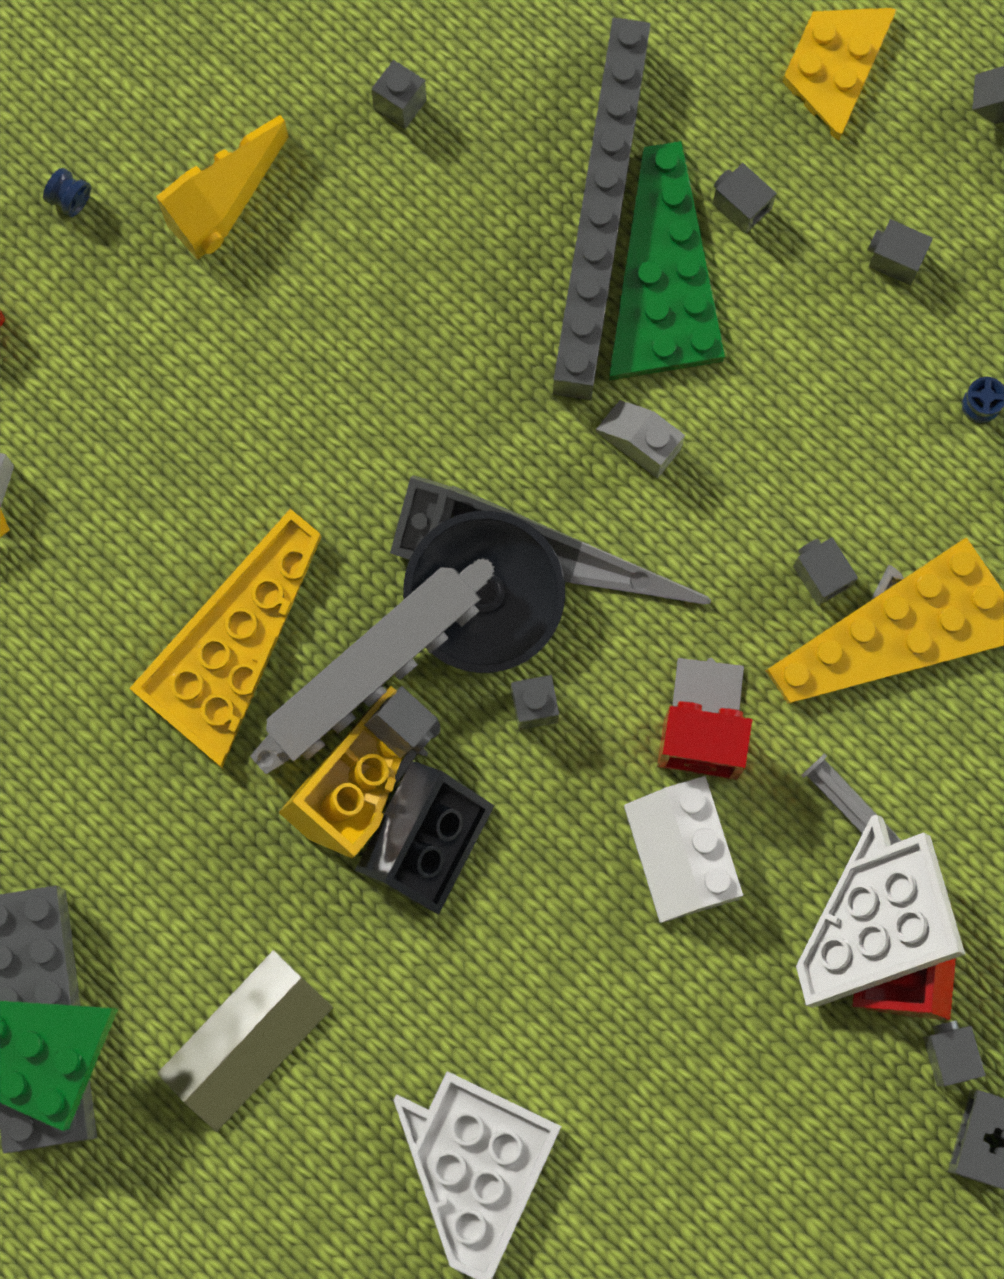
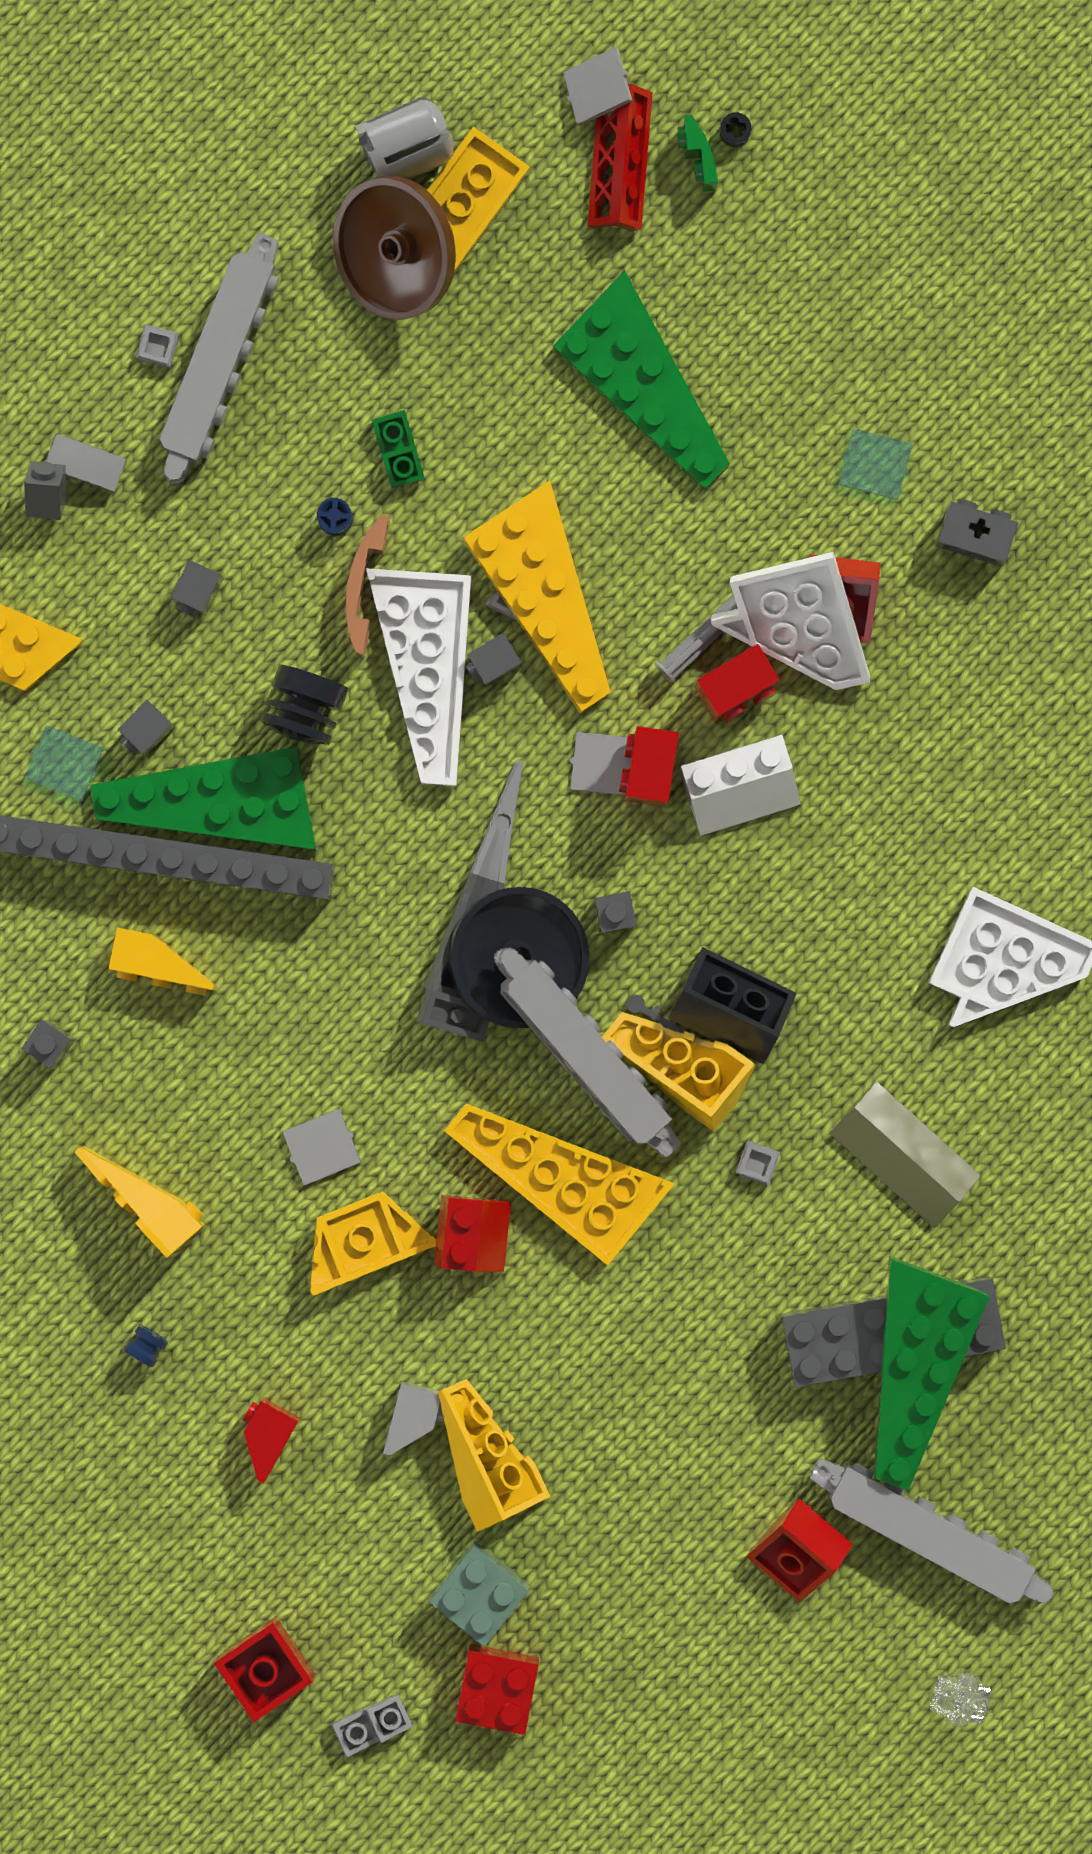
camera: 90 degrees left, 10 degrees up
(170, 421) = (363, 1240): none -> yellow wing
(171, 539) = (472, 1234): none -> red slope
(242, 865) = (757, 1162): none -> light grey tile
(278, 381) = (321, 1147): none -> light grey piece
(402, 723) = (637, 1026): dark grey brick -> none
(492, 201) = (149, 956): none -> yellow slope
(642, 436) = (371, 822): light grey slope -> none
(704, 118) = (64, 763): none -> clear light blue piece
(771, 358) = (304, 705): none -> black wheel
(801, 844) = (737, 683): none -> red brick
(848, 495) = (426, 644): none -> white wing
(953, 1054) = (907, 560): dark grey brick -> none
(958, 440) = (374, 543): none -> nougat slope

